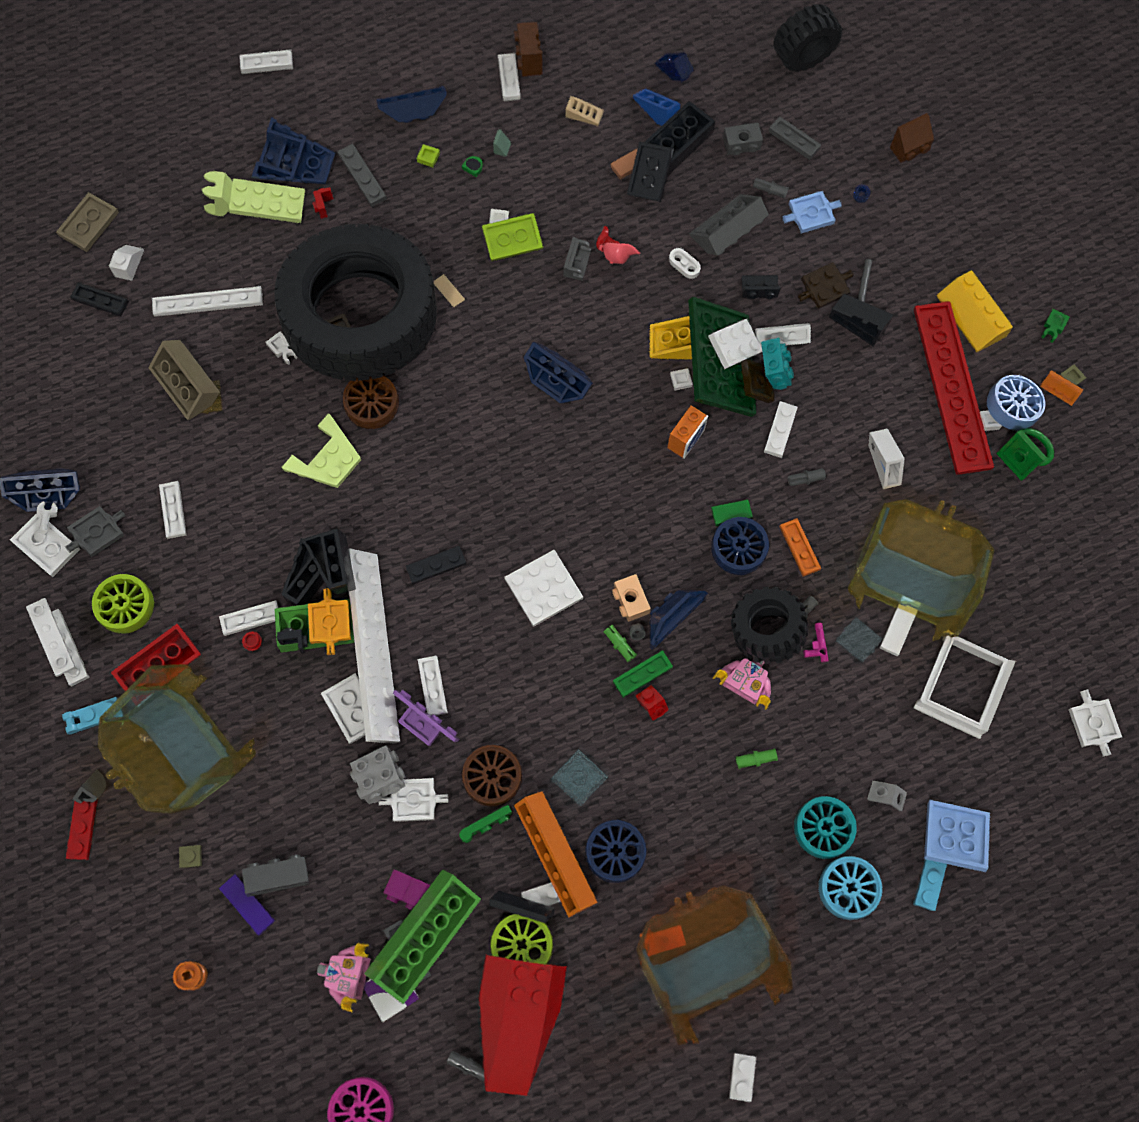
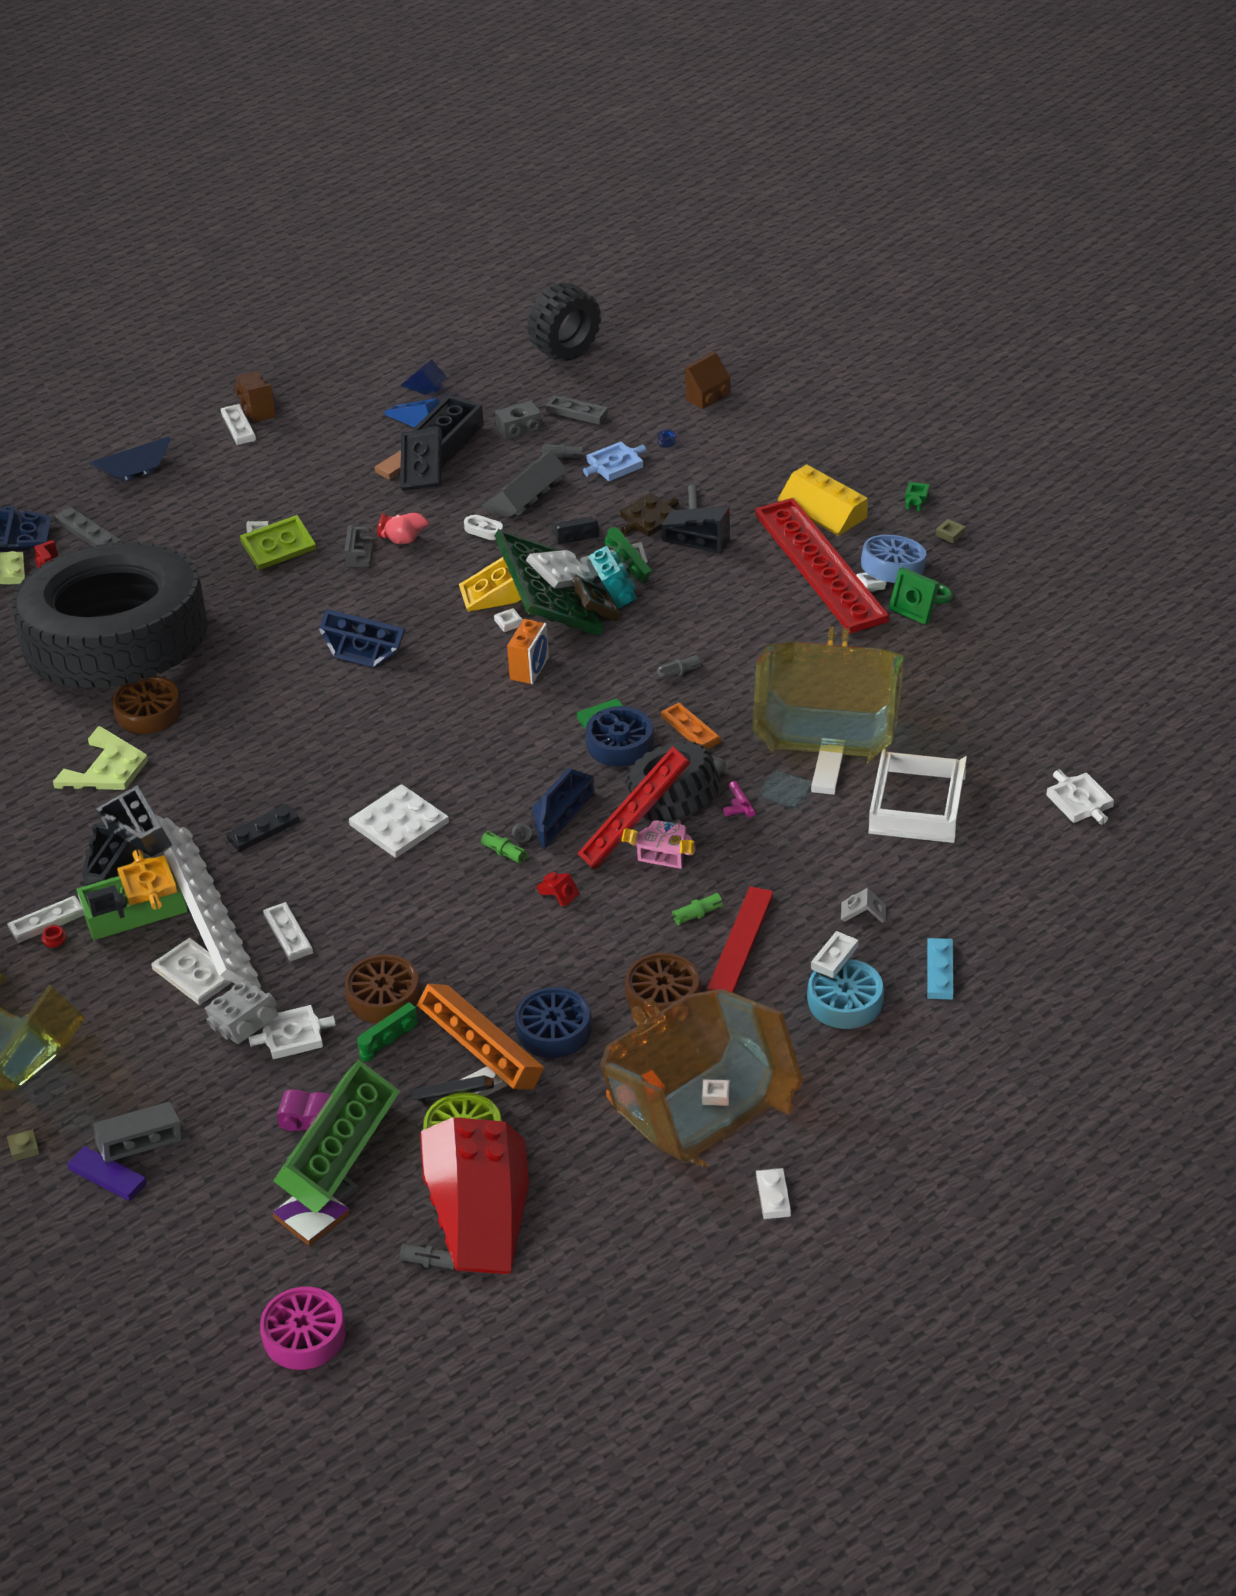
camera: 10 degrees left, 30 degrees down
(190, 975) = (50, 1246): orange wheel -> none
(280, 346) = (28, 682): white plate -> none
(346, 975) = (252, 1198): bright pink torso -> none
(421, 723) = (284, 958): medium lavender bracket -> none
(428, 155) = (161, 499): lime plate -> none
(448, 290) = (217, 604): tan sticker -> none
(473, 165) = (215, 499): tile -> none
(501, 144) = (243, 475): sand green slope -> none
(579, 778) = (490, 972): clear light blue tile -> none
(580, 104) = (330, 434): tan slope -> none
(632, 587) = (505, 803): light nougat brick -> none
(642, 674) = (538, 866): green plate -> none
(723, 966) = (715, 1092): none -> white tile
(726, 820) = (662, 978): none -> reddish brown piece
(731, 652) = (634, 807): none -> red tile
(780, 429) = (636, 637): white plate -> none
(781, 802) = (741, 940): none -> red tile
(794, 338) = (628, 554): none -> green plate
(844, 812) = (792, 957): teal piece -> none
(851, 857) = (834, 954): none -> white plate
(887, 458) = (762, 626): white slope -> none
(957, 836) = (954, 919): light blue plate -> none
(1061, 388) = (941, 540): orange plate -> none

